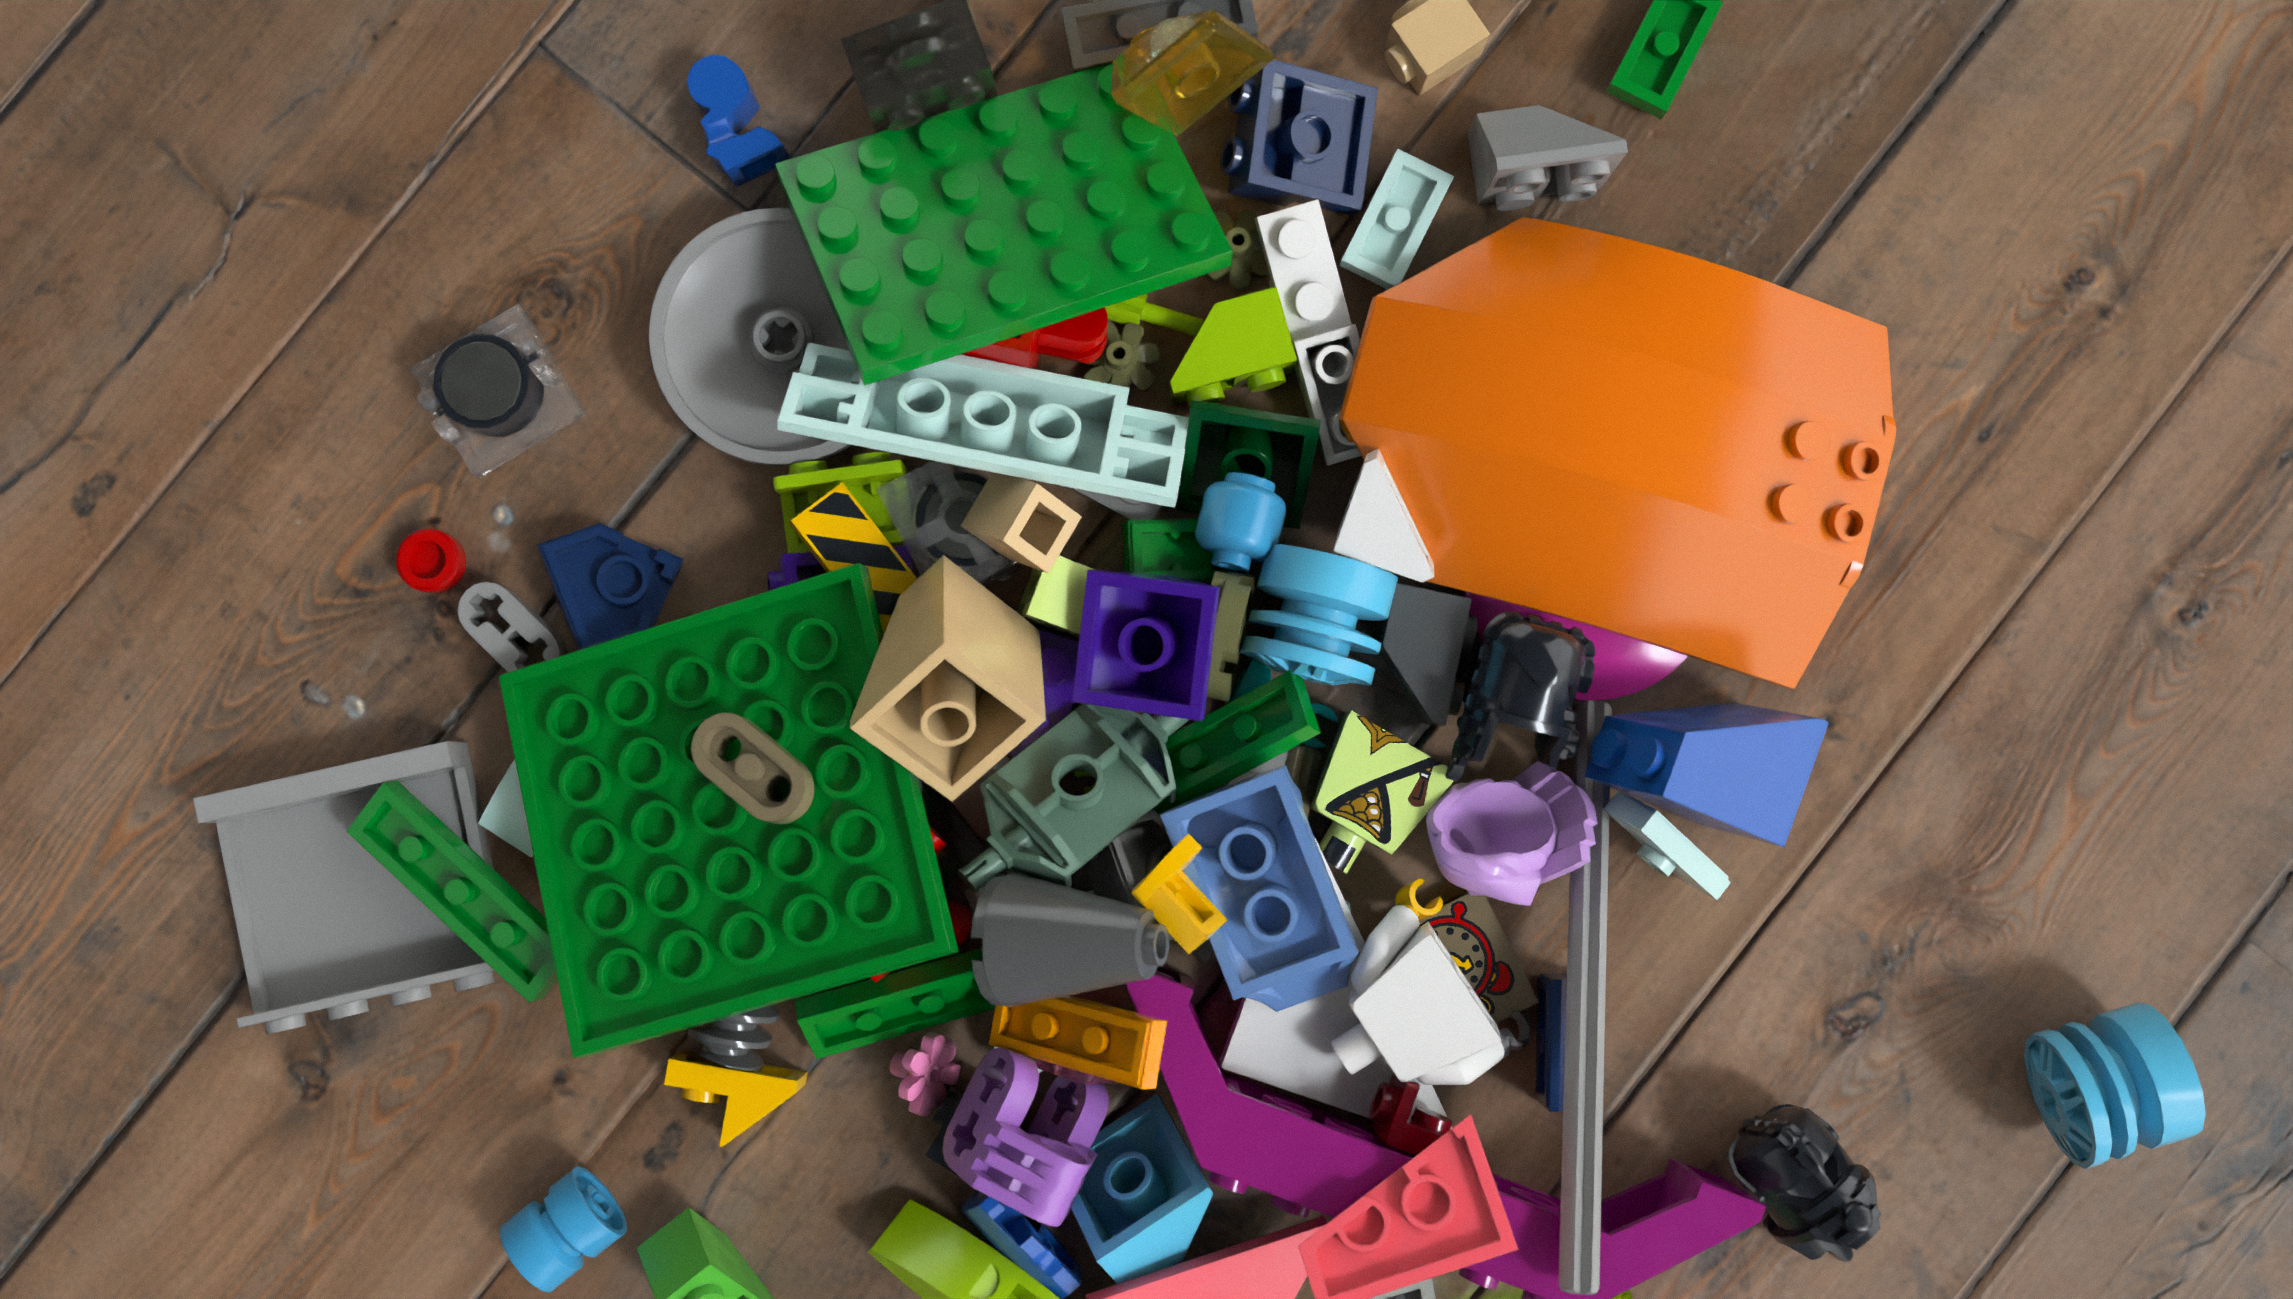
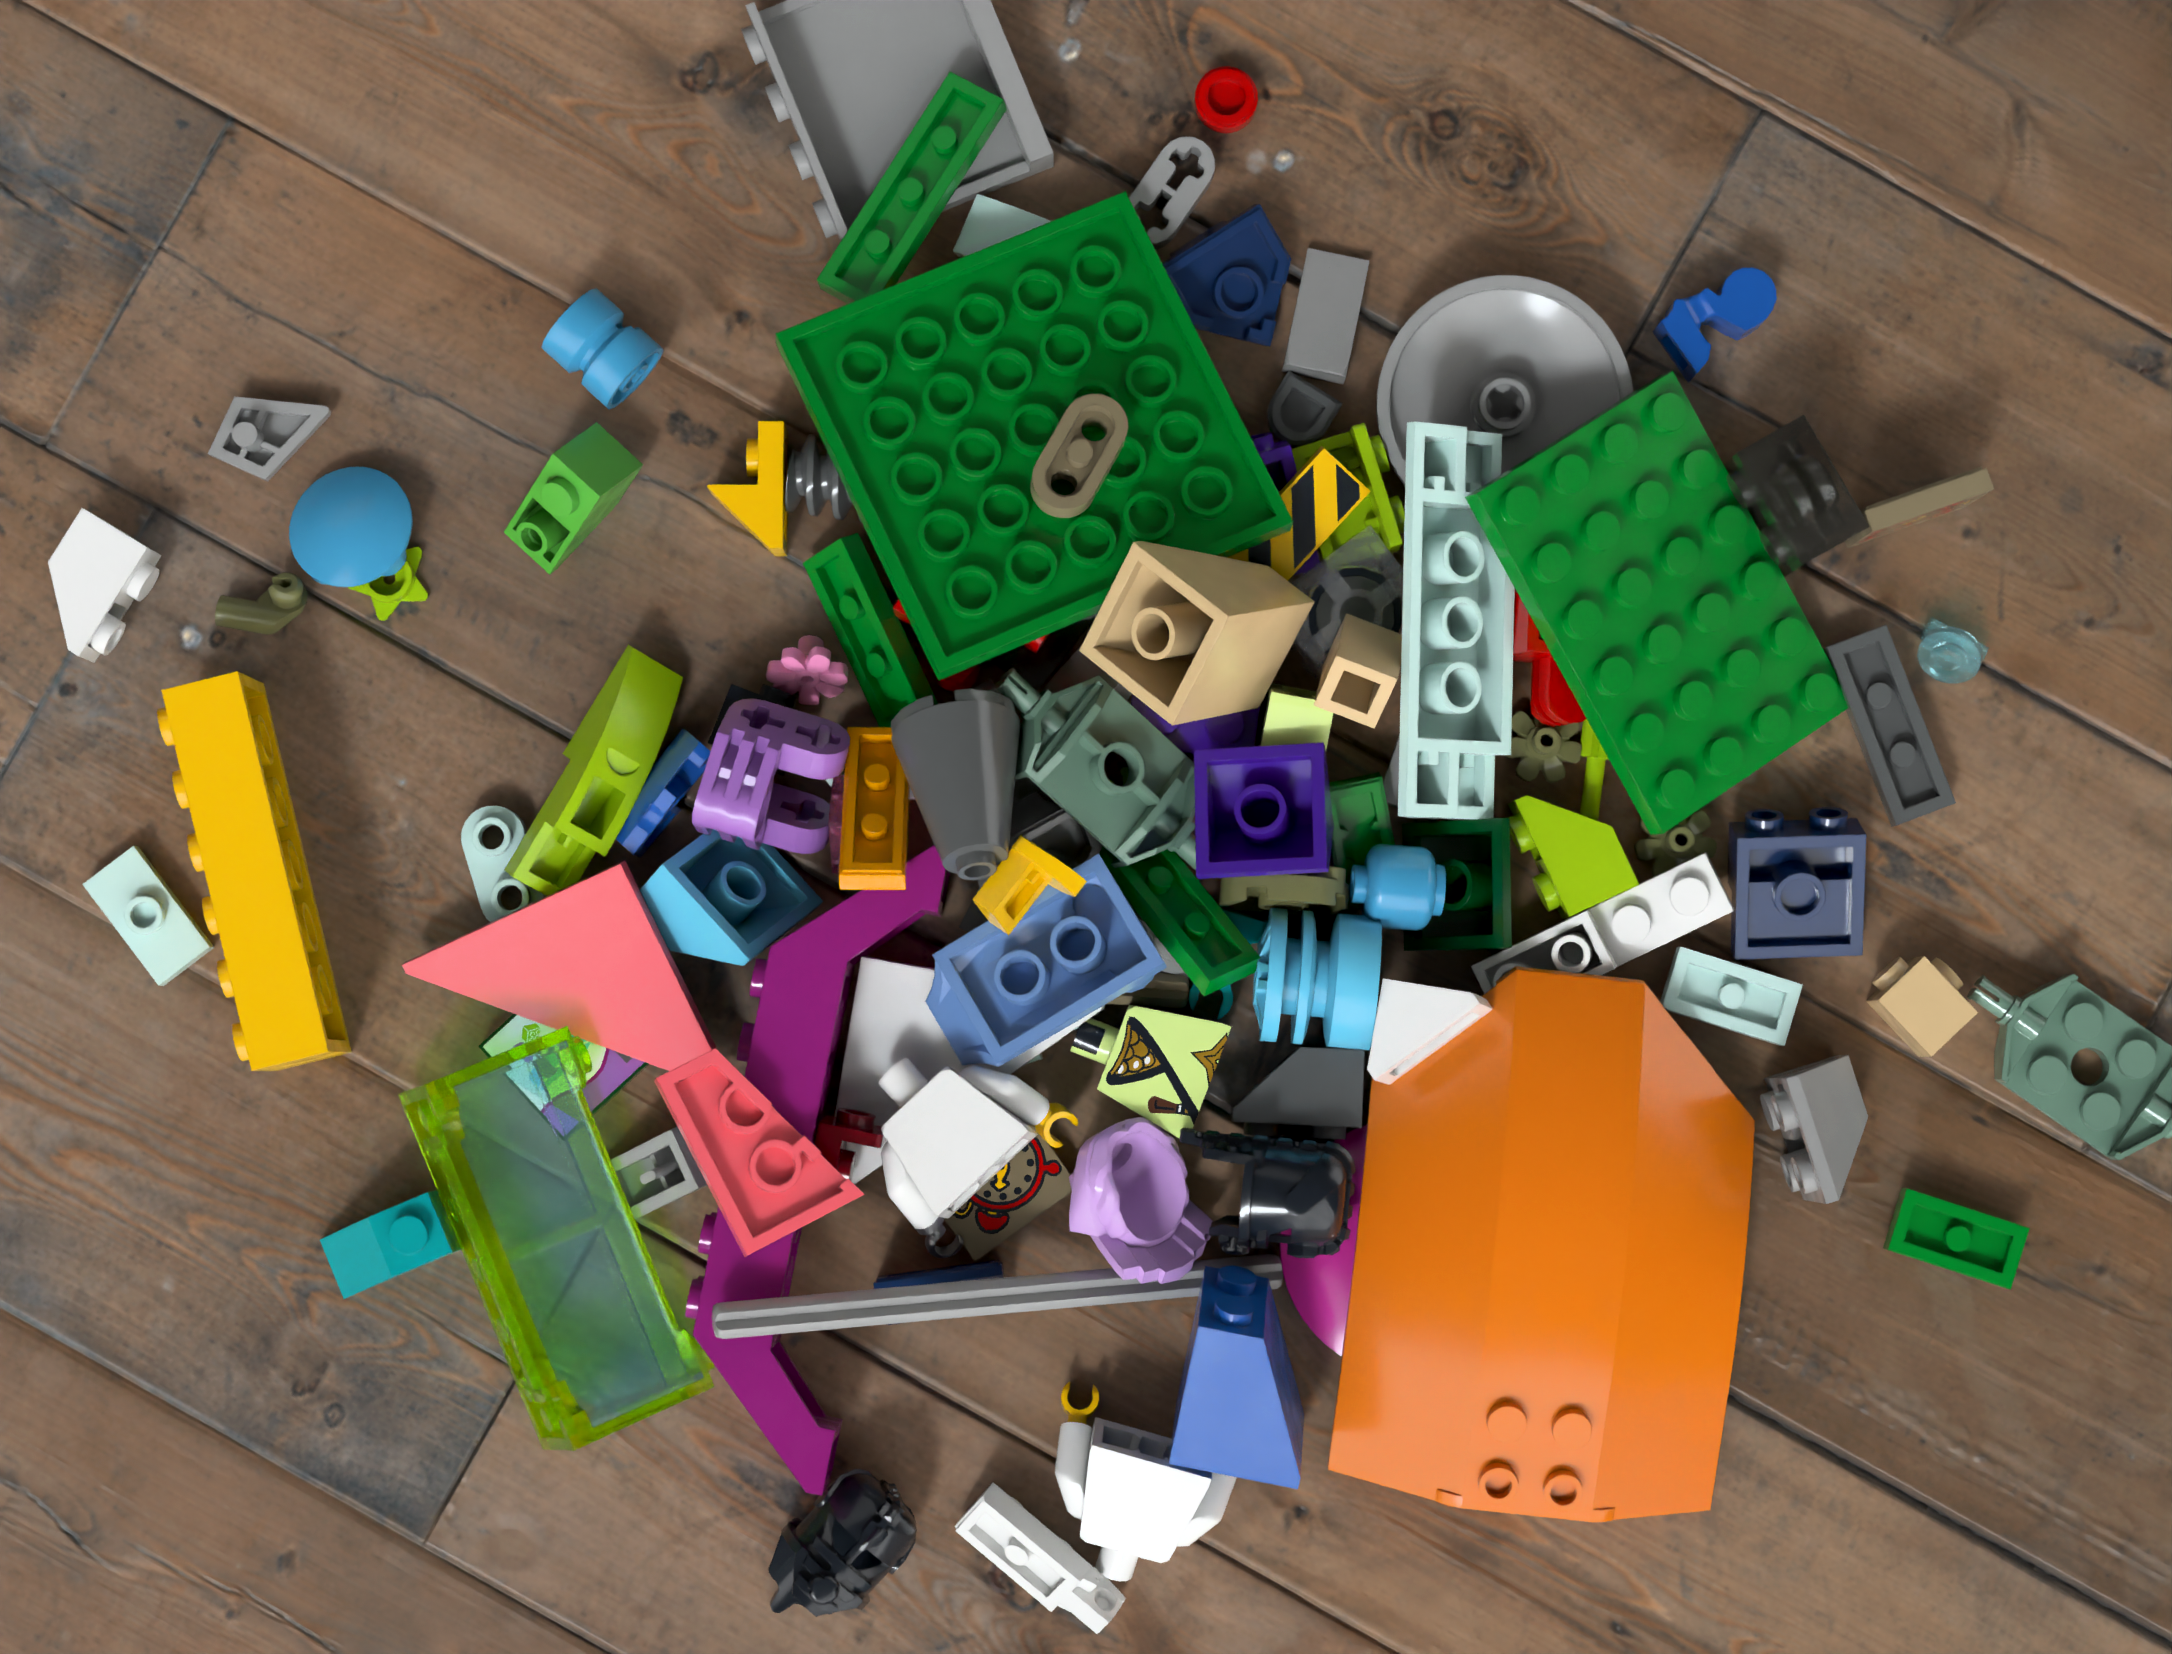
camera: 75 degrees right, 0 degrees up
(496, 387) = (1407, 132): piece -> none
(664, 499) = (1325, 316): none -> light grey slope
(753, 540) = (1300, 411): none -> dark grey tile
(1185, 68) = (1835, 753): clear yellow slope -> none
(1665, 846) = (1148, 1357): light aqua plate -> none
(1794, 892) = (1130, 1493): none -> white torso
(1842, 987) = (1038, 1559): none -> white hinge

